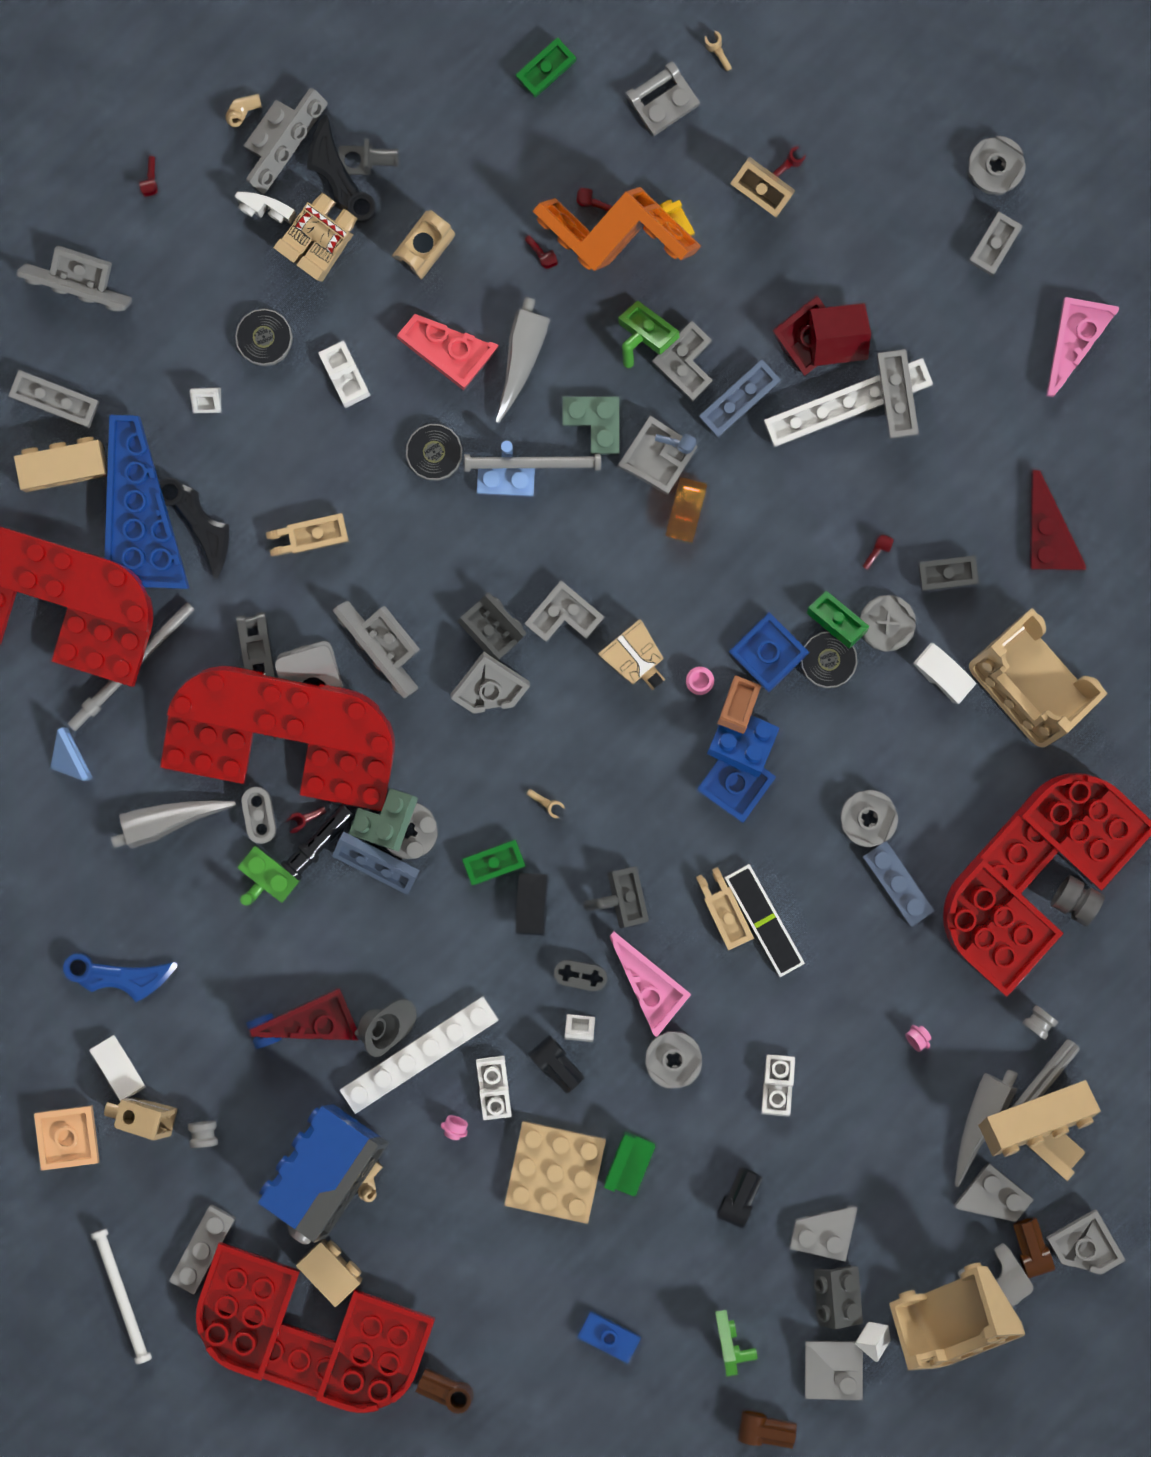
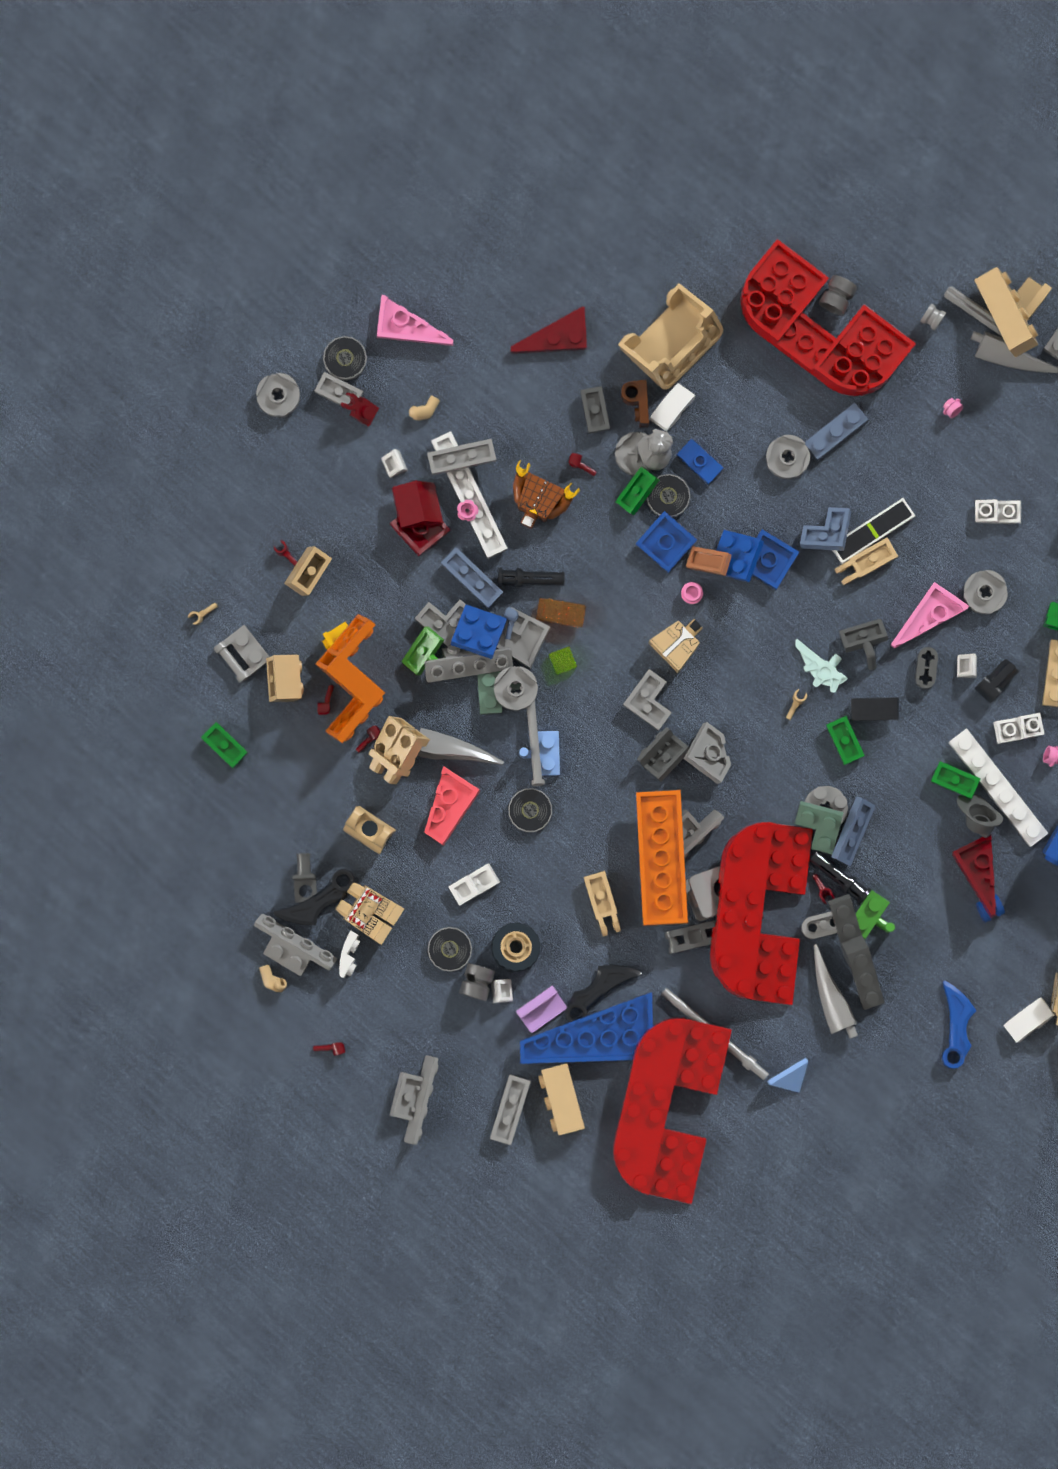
camera: 90 degrees left, 5 degrees down
(179, 448) = (541, 1009): none -> lavender panel
(217, 367) = (476, 982): none -> flat silver wheel
(218, 853) = (856, 952): none -> dark grey bracket
(256, 402) = (515, 961): none -> black wheel
(355, 612) = (661, 858): none -> orange plate
(431, 1000) = (955, 780): none -> green plate
(522, 284) = (396, 749): none -> tan hips
(587, 840) = (821, 670): none -> light aqua piece
(590, 426) = (528, 688): none -> light grey plate
(624, 508) = (562, 660): none -> clear neon green tile
(626, 148) = (284, 678): none -> tan brick
(630, 382) = (462, 663): none -> light grey bracket
(666, 399) = (478, 631): none -> blue plate
(731, 509) = (518, 580): none -> black pin
(761, 867) = (830, 536): none -> sand blue plate
(821, 391) = (467, 504): none -> bright pink plate
(838, 492) = (539, 497): none -> dark orange torso
(871, 704) = (699, 461): none -> blue plate
(889, 647) = (656, 449): none -> light grey hair
(896, 310) = (394, 463): none -> white slope
(957, 633) = (640, 400): none -> reddish brown plate
(961, 353) = (426, 411): none -> tan arm
(970, 270) = (361, 408): none -> dark red plate
(1039, 255) = (345, 358): none -> black tile

